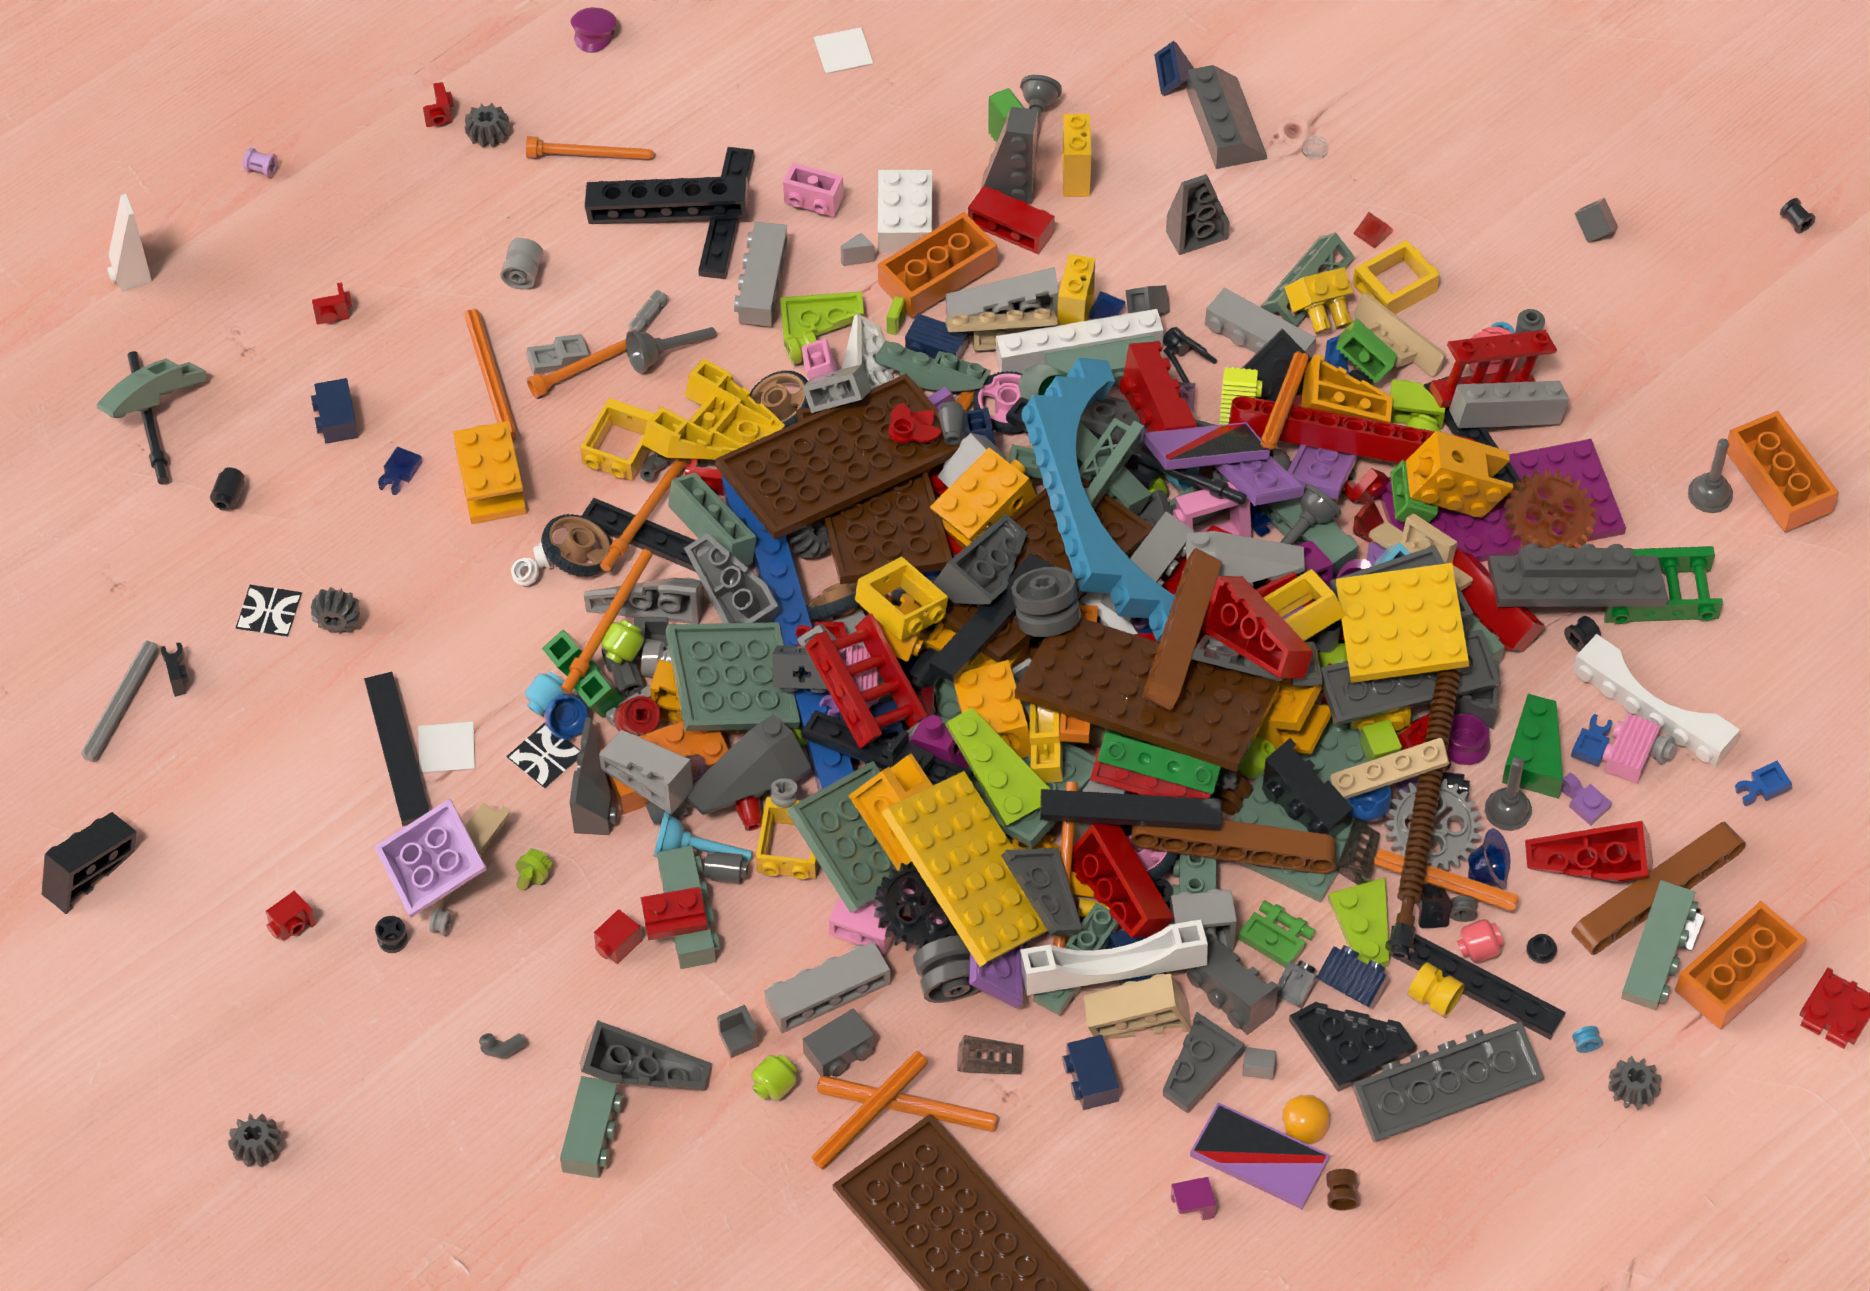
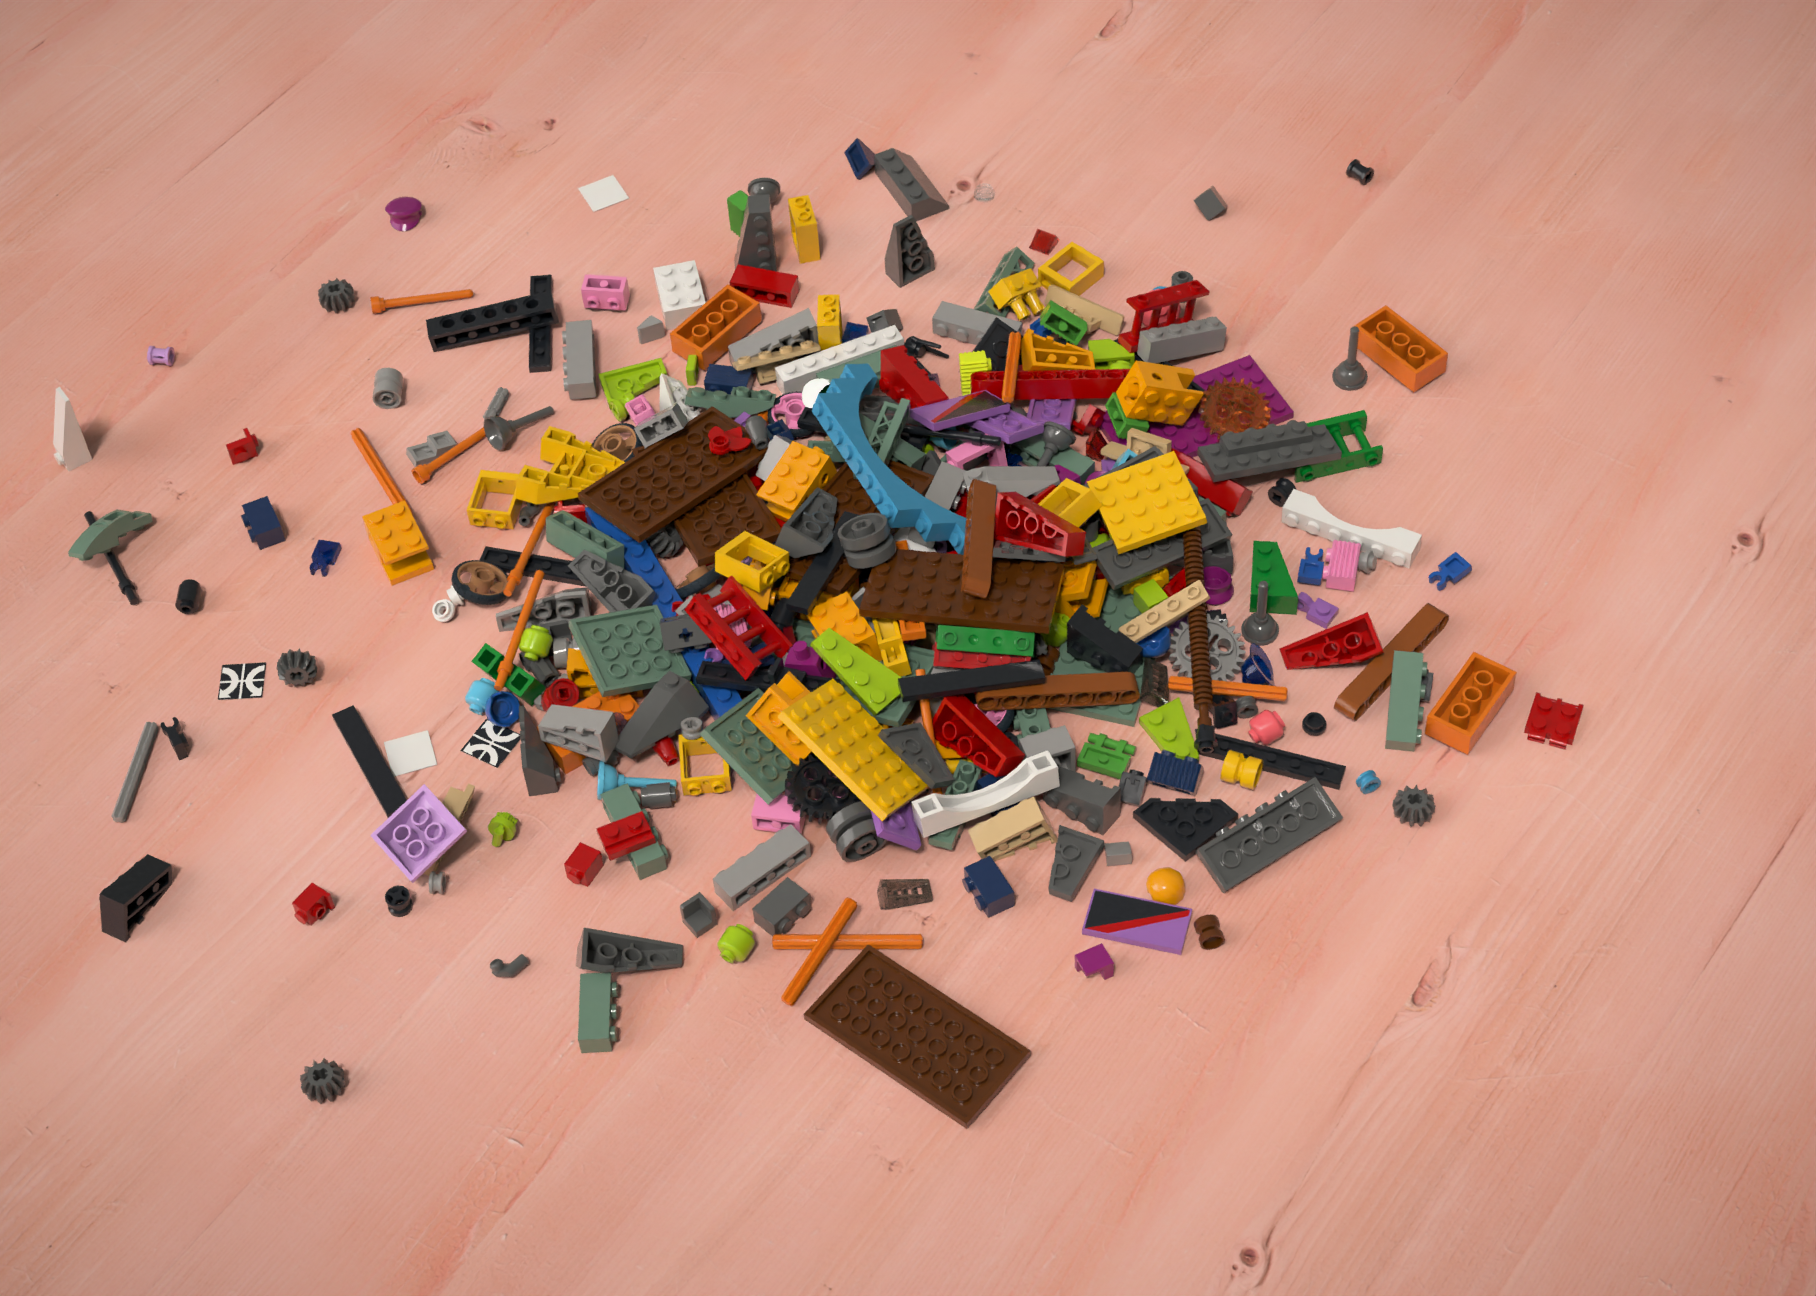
camera: 10 degrees left, 5 degrees down
(440, 112) = (296, 293): red bracket -> none

